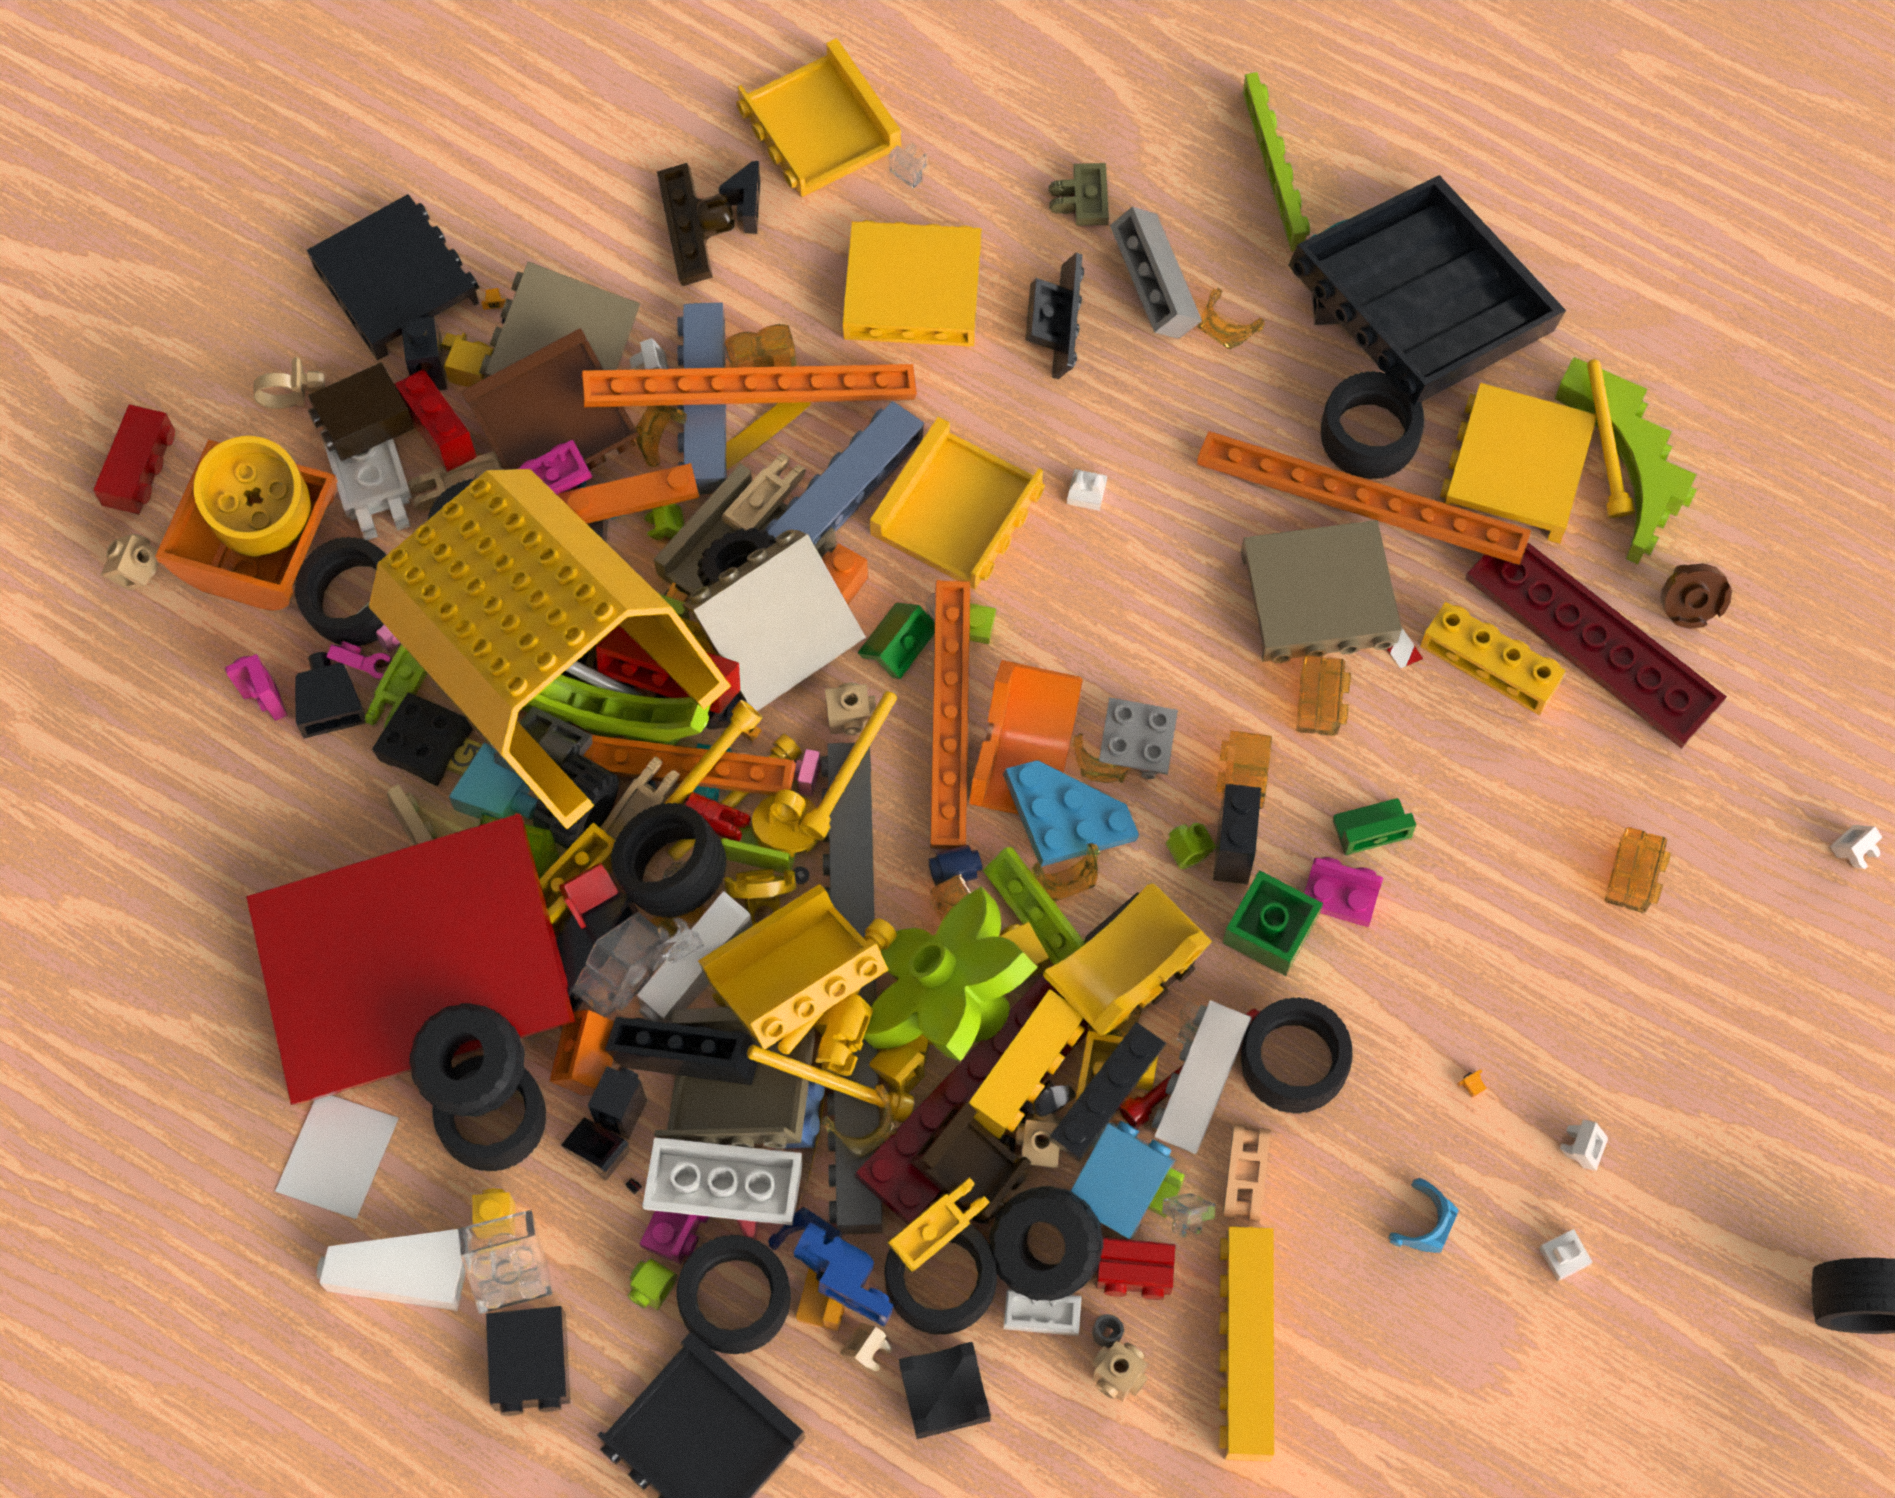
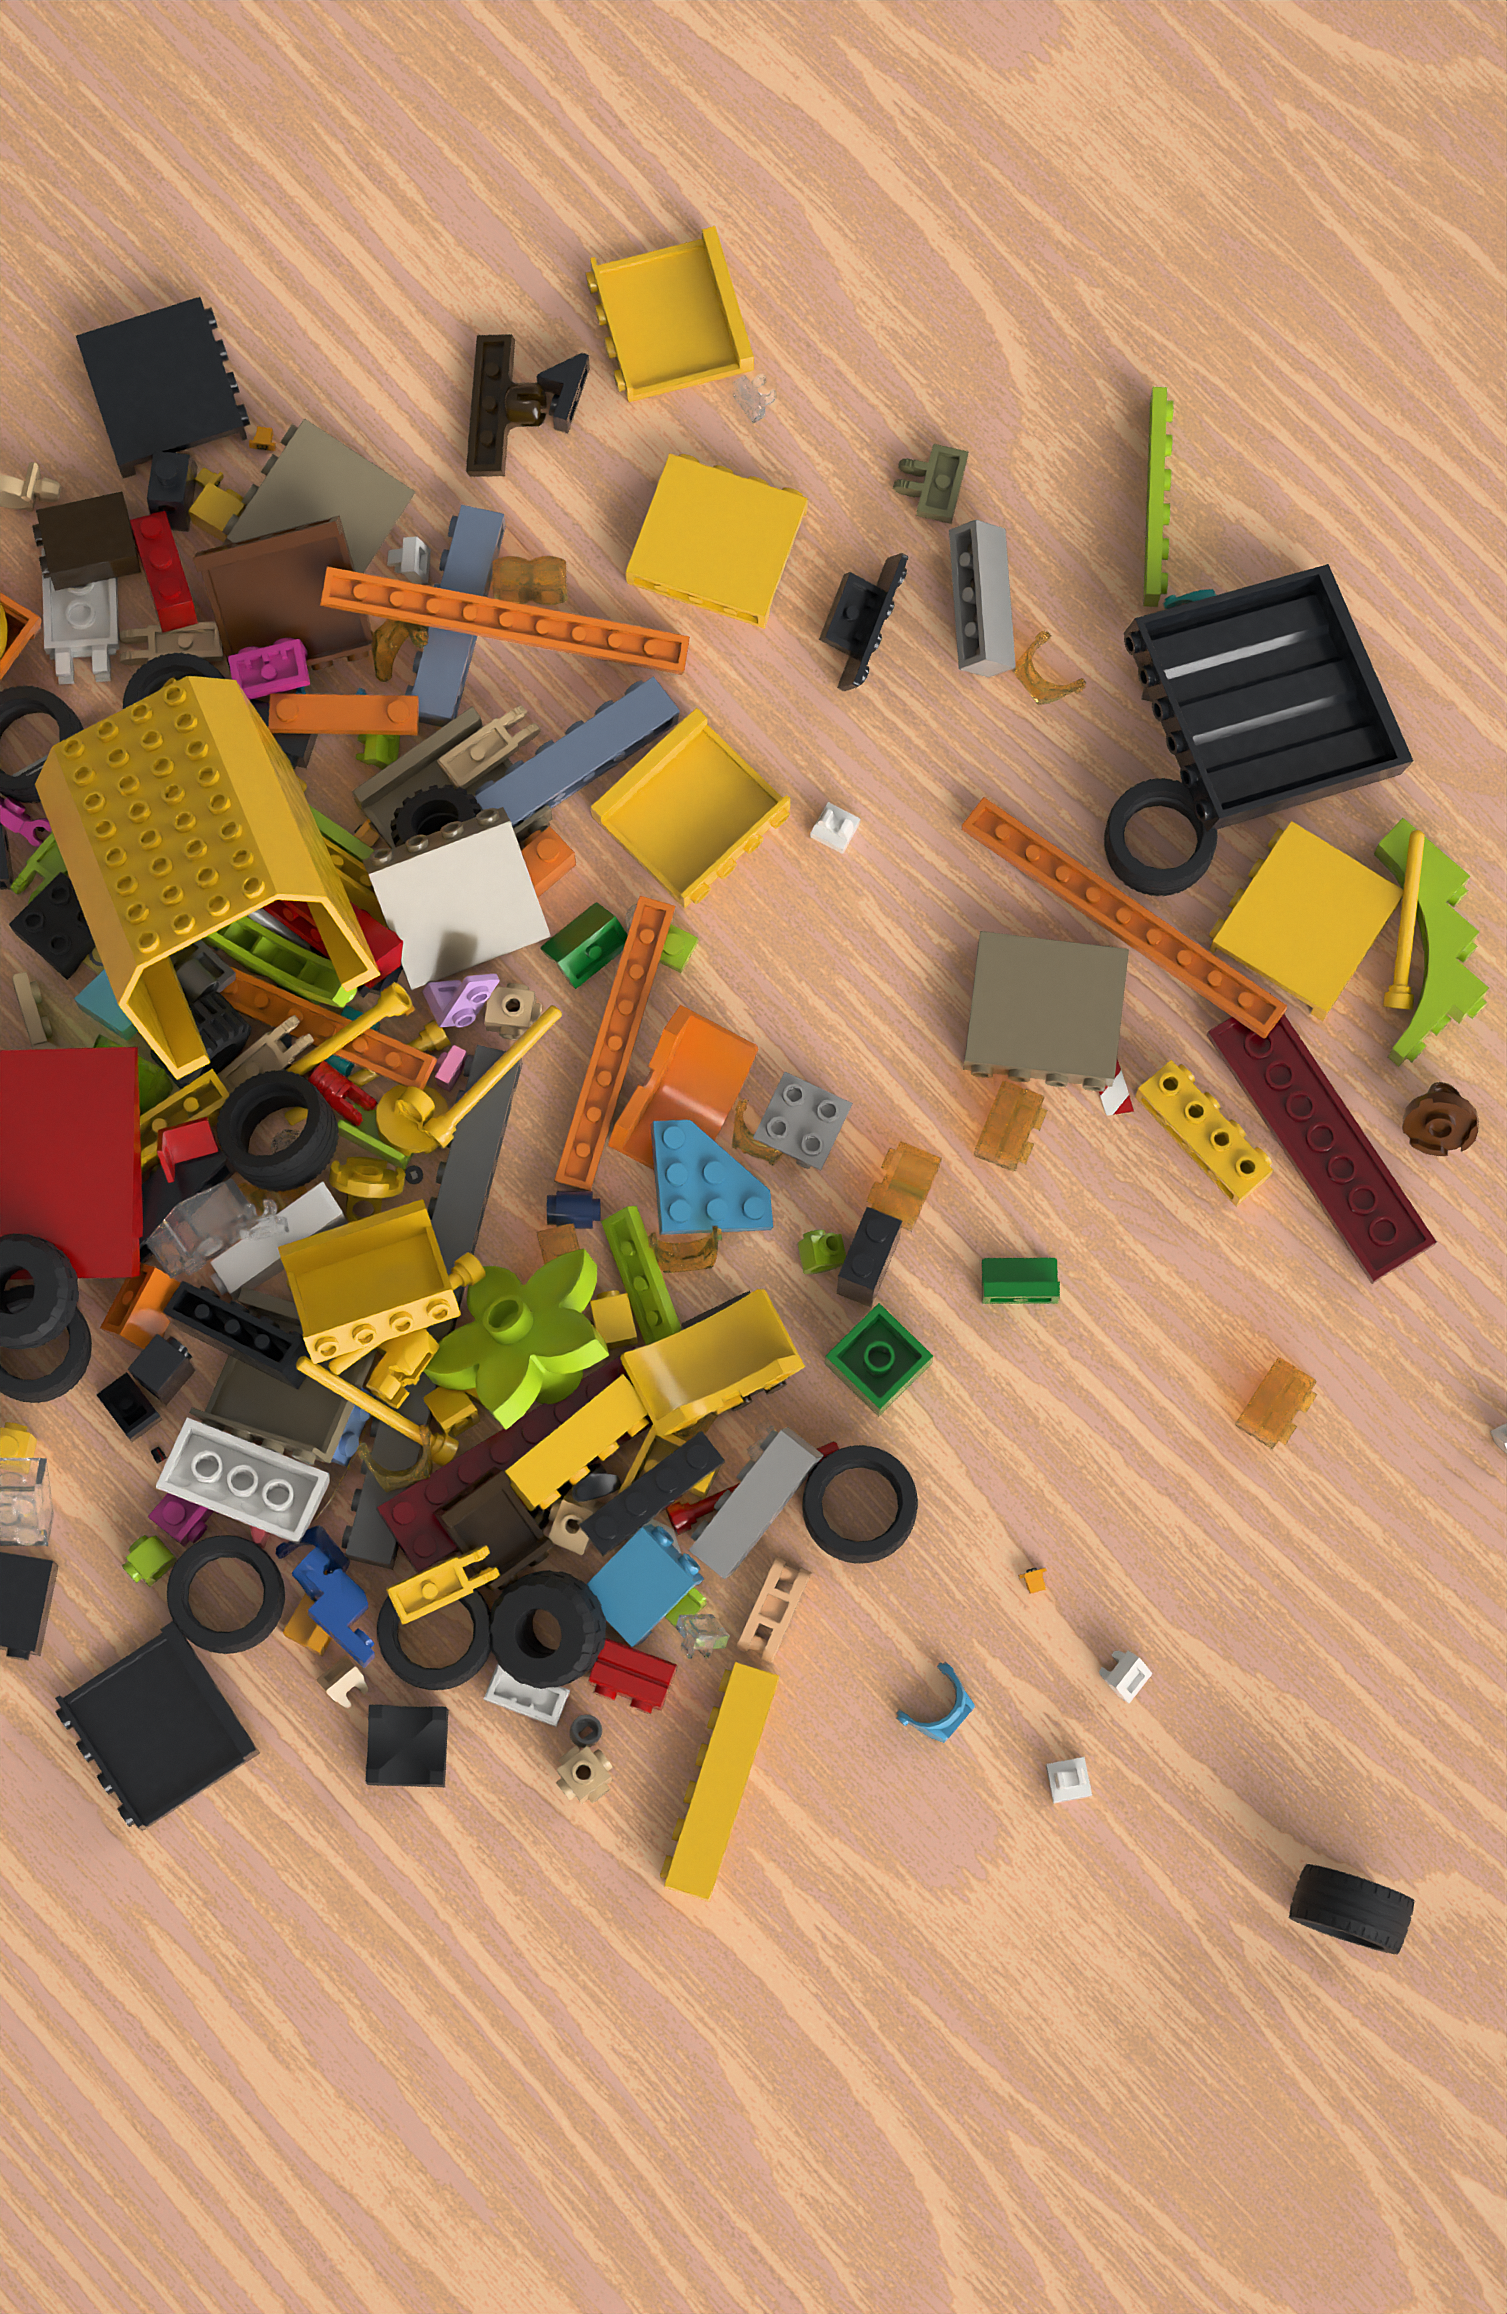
camera: 15 degrees right, 10 degrees up
(762, 430) = (507, 669): yellow sticker -> none
(801, 715) = (459, 1002): none -> lavender bracket
(1343, 890) = (964, 1343): dark pink bracket -> none

